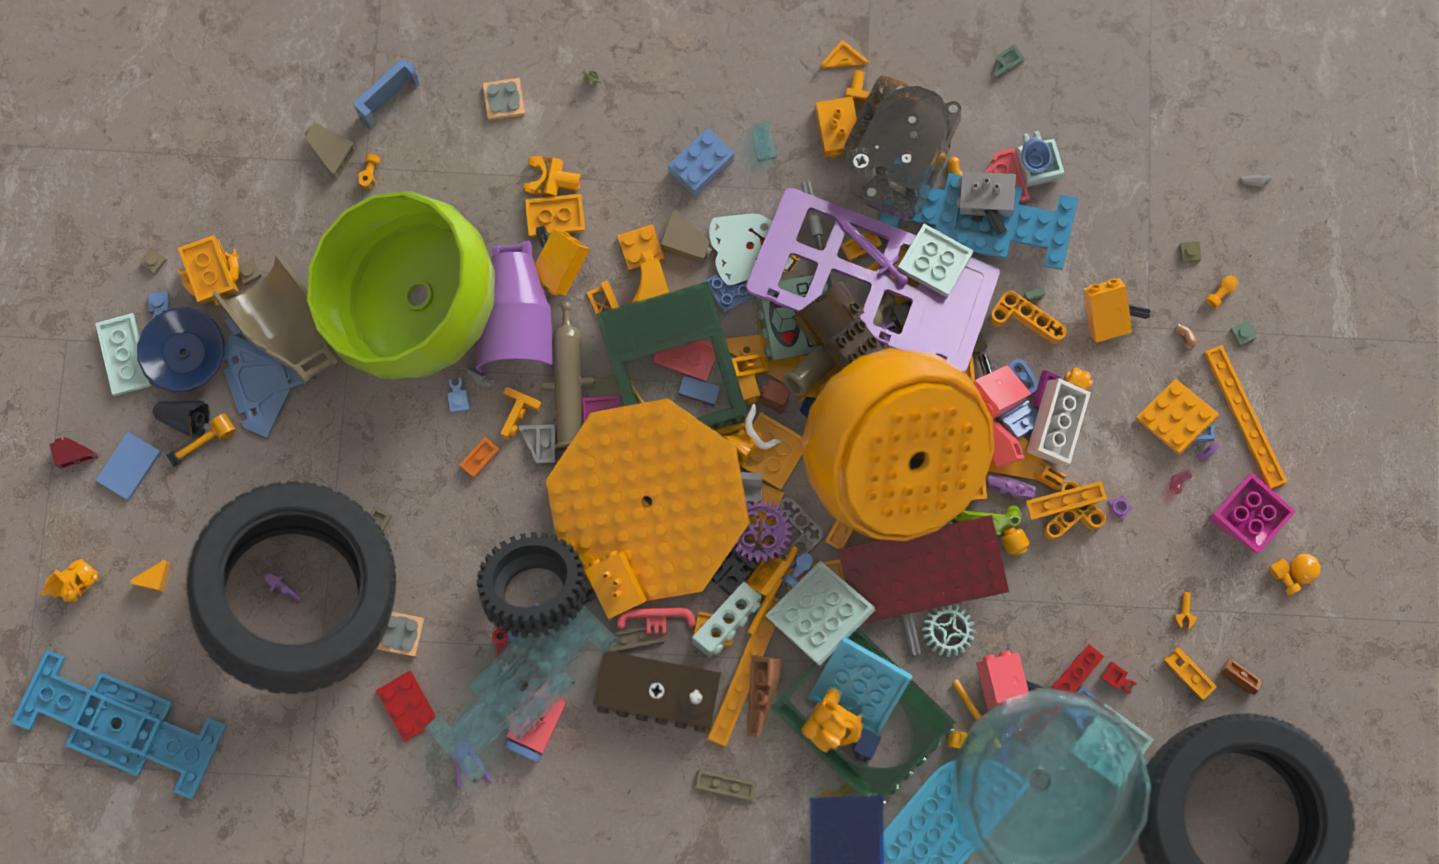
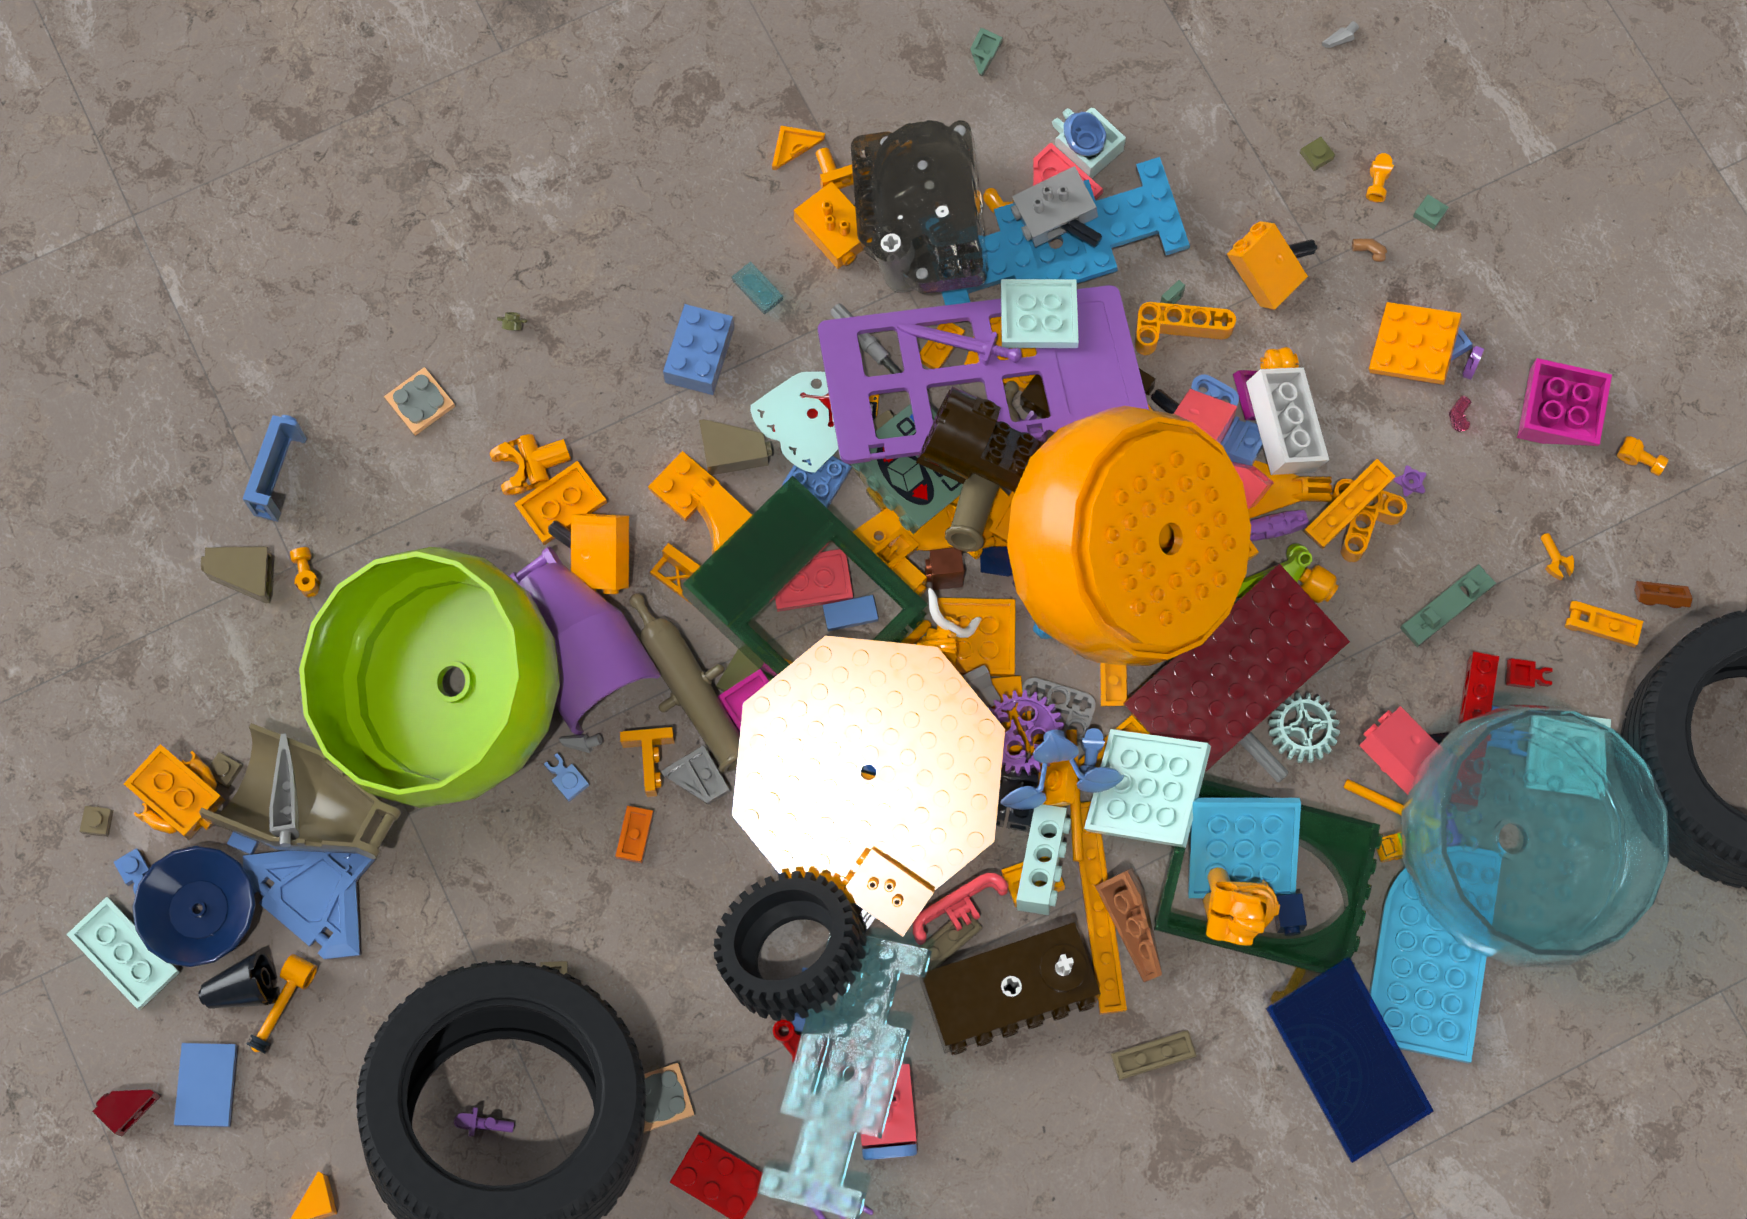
camera: 25 degrees left, 5 degrees down
(267, 316) = (284, 801): none -> light grey piece
(771, 555) = (1057, 749): none -> medium blue plant
(1093, 603) = (1447, 606): none -> sand green hinge
(1245, 417) = (1488, 303): light orange tile -> none
(1304, 569) = (1658, 435): light orange hair -> none

